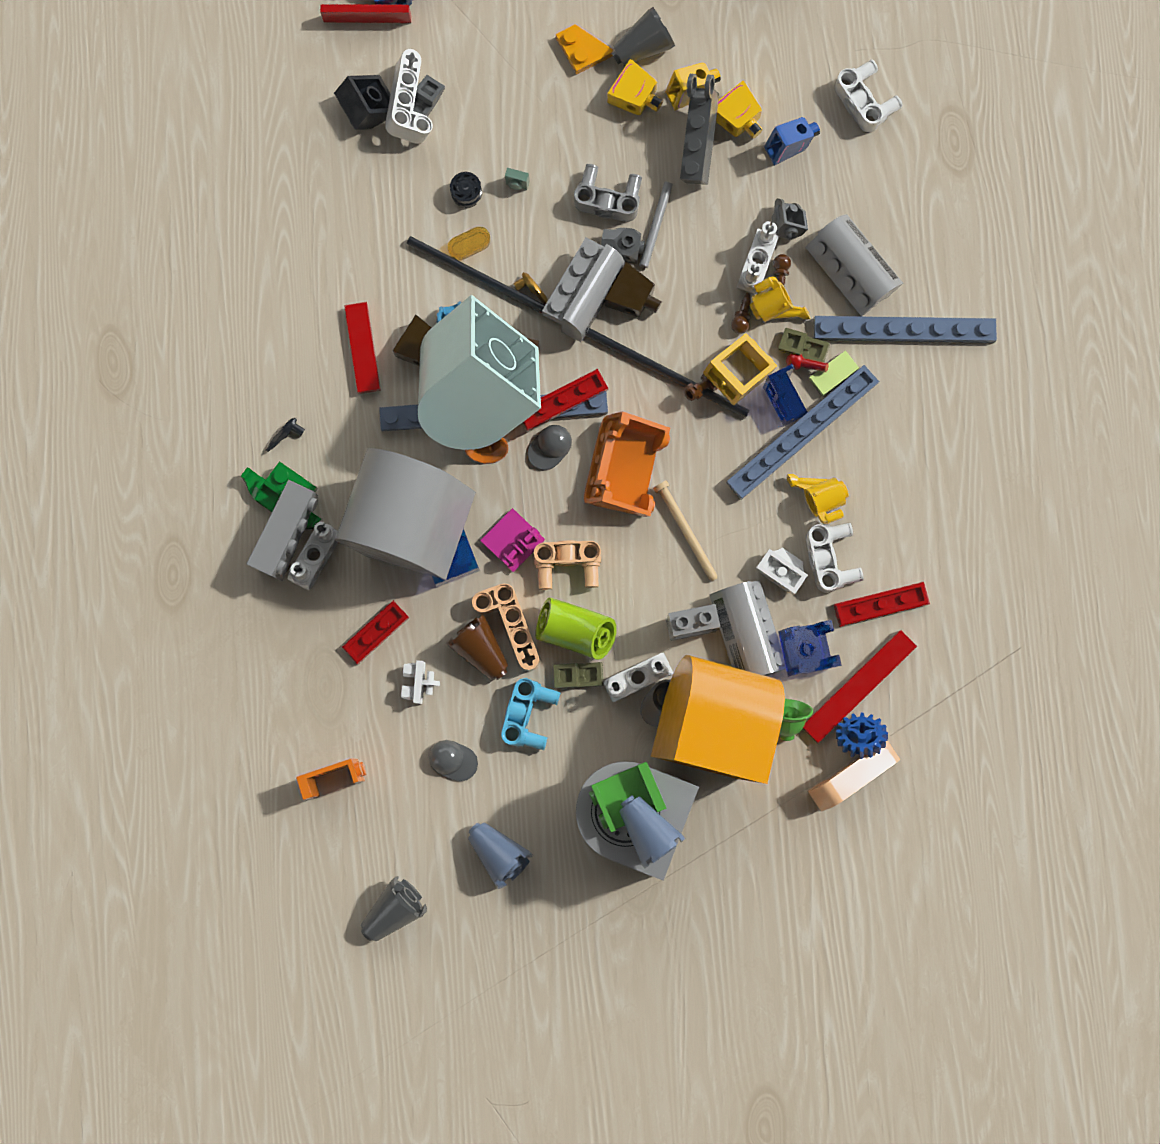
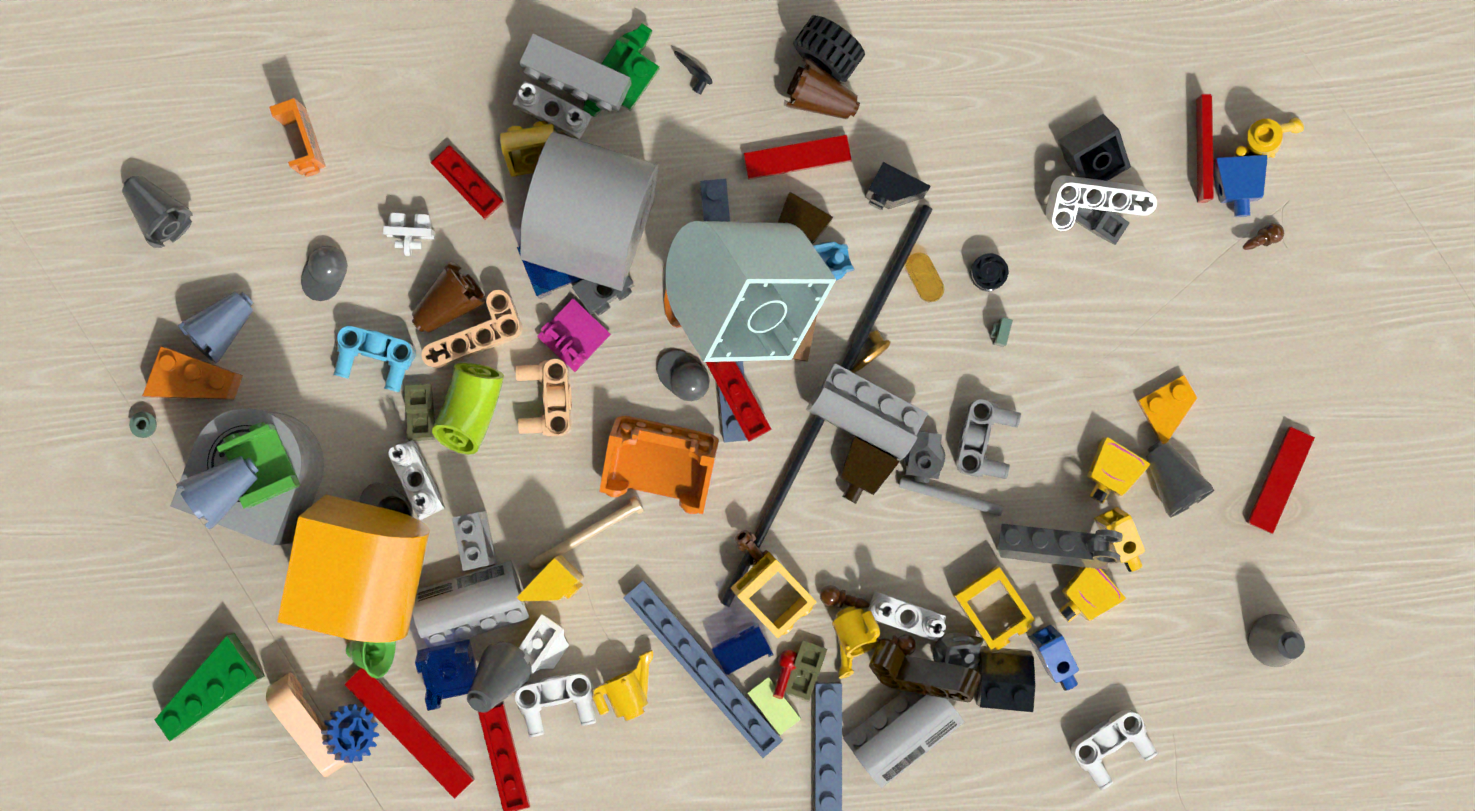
camera: 90 degrees right, 5 degrees up
(269, 314) = (829, 47): none -> black tyre
(306, 326) = (820, 93): none -> reddish brown cone
(347, 573) = (524, 147): none -> yellow brick
(390, 264) = (895, 188): none -> black slope
(481, 523) = (596, 303): none -> dark grey brick
(544, 881) = (188, 377): none -> orange wedge
(586, 916) = (151, 424): none -> sand green plate
(729, 553) = (554, 582): none -> yellow slope
(733, 203) = (978, 586): none -> yellow window
(809, 242) = (922, 675): none -> dark brown beam
(810, 603) = (498, 675): none -> dark grey cone
(813, 180) = (1006, 682): none -> black slope
(820, 858) = (215, 683): none -> green wedge

